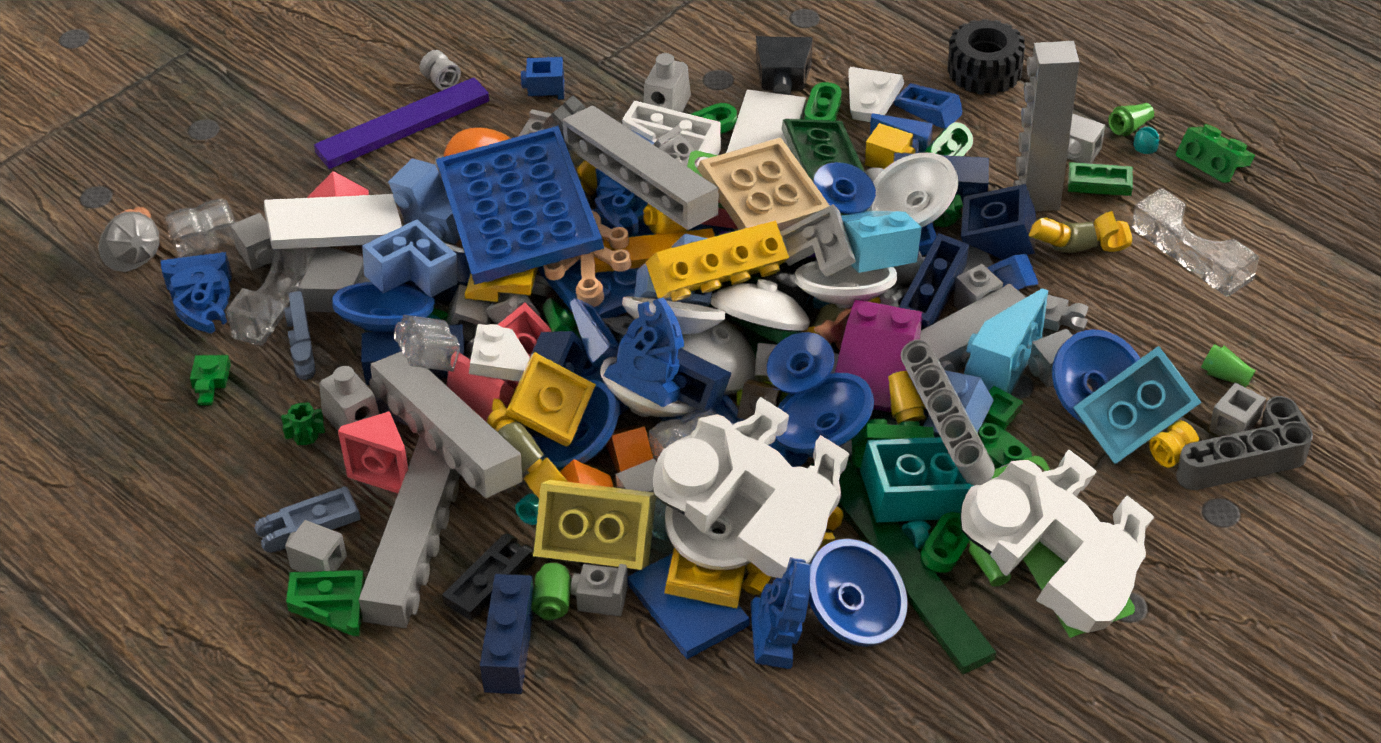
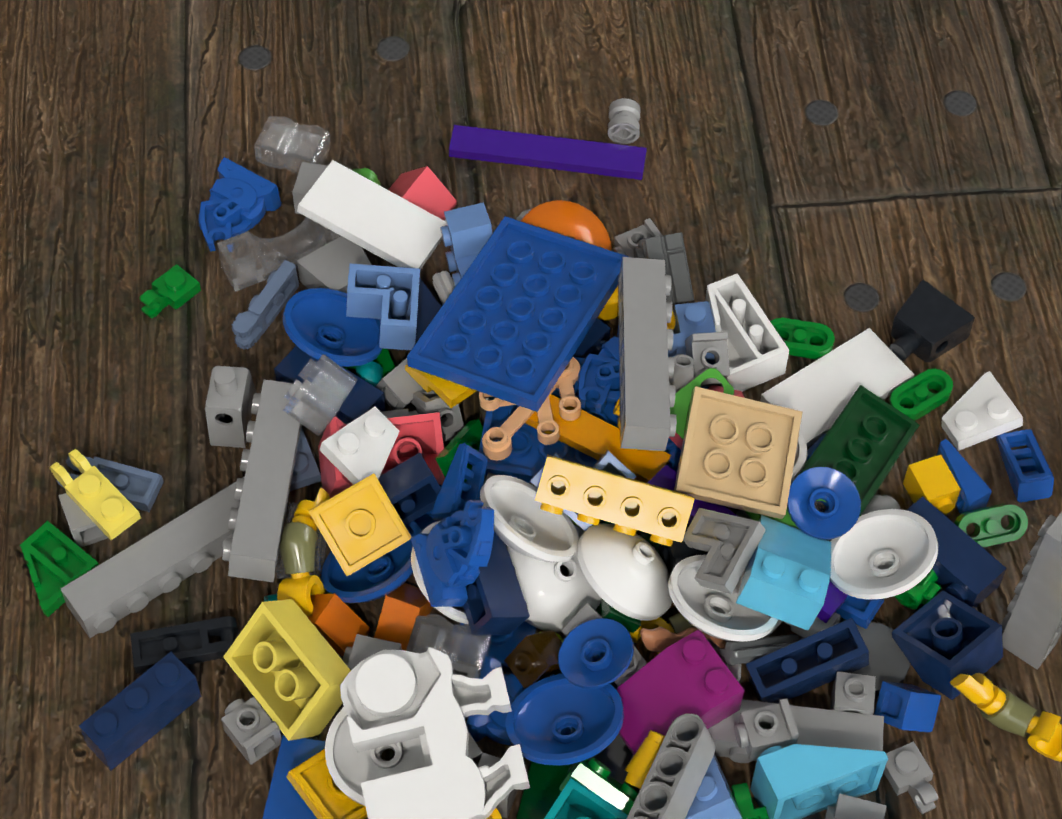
camera: 40 degrees right, 10 degrees up
(129, 240) = (230, 117): light grey piece -> none
(303, 423) = (187, 390): green gear -> none
(317, 522) = (96, 496): none -> light yellow hinge
(374, 452) = (205, 460): coral slope -> none
(544, 77) = (702, 190): blue brick -> none
(551, 591) = (211, 699): bright green brick -> none
(670, 81) = (786, 281): light grey torso -> none
(953, 330) = (756, 739): none -> light grey brick

